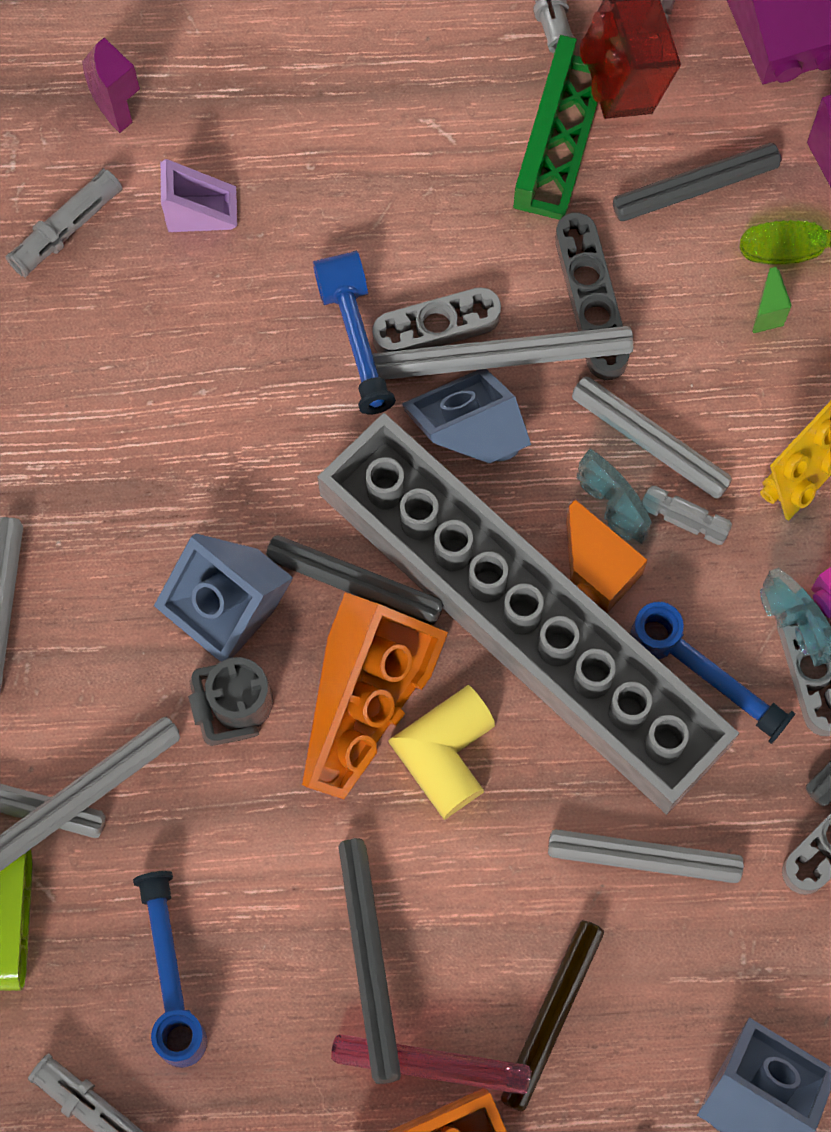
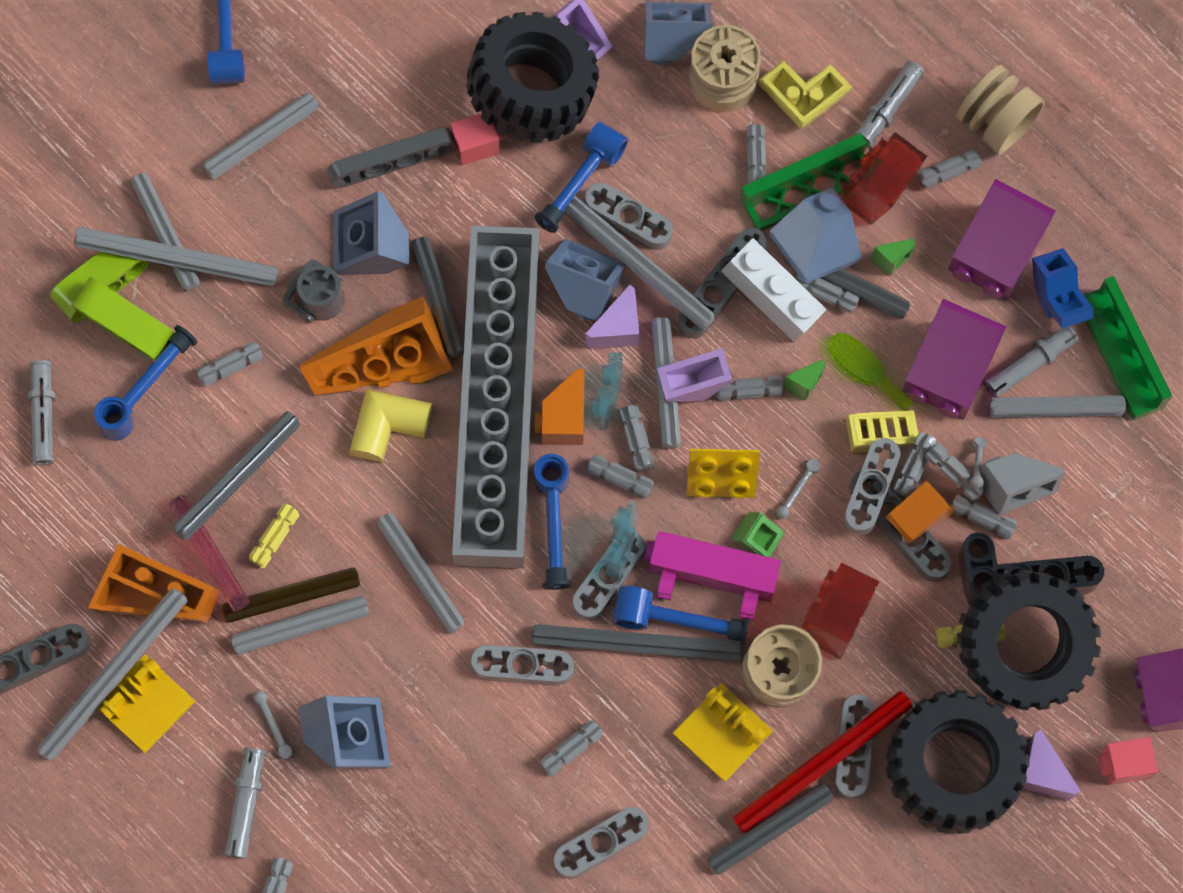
camera: 45 degrees right, 0 degrees up
(75, 931) = (122, 318): none -> lime beam
(153, 497) = (391, 157): none -> dark grey beam
(202, 237) = (538, 43): none -> black tyre
(212, 395) = (475, 139): none -> coral brick
(228, 859) = (230, 363): none -> light grey axle
(279, 112) = (673, 28): none -> sand blue slope
(370, 99) = (719, 83): none -> tan wheel
(468, 977) = (273, 535): none -> light yellow axle
(469, 61) = (803, 100): none -> light yellow brick
(484, 152) = (756, 152): none -> light grey axle
(550, 425) = (617, 325): none -> lavender slope
(595, 1035) = (299, 625): none -> light grey axle
(631, 164) = (818, 236): none -> sand blue slope
(653, 250) = (773, 290): none -> white brick
(680, 398) = (695, 377): none -> lavender slope
(689, 208) = (831, 293): none -> light grey axle
(711, 118) = (892, 255): none -> bright green slope
(714, 565) = (620, 476): none -> light grey axle
(728, 364) = (752, 388): none -> light grey axle

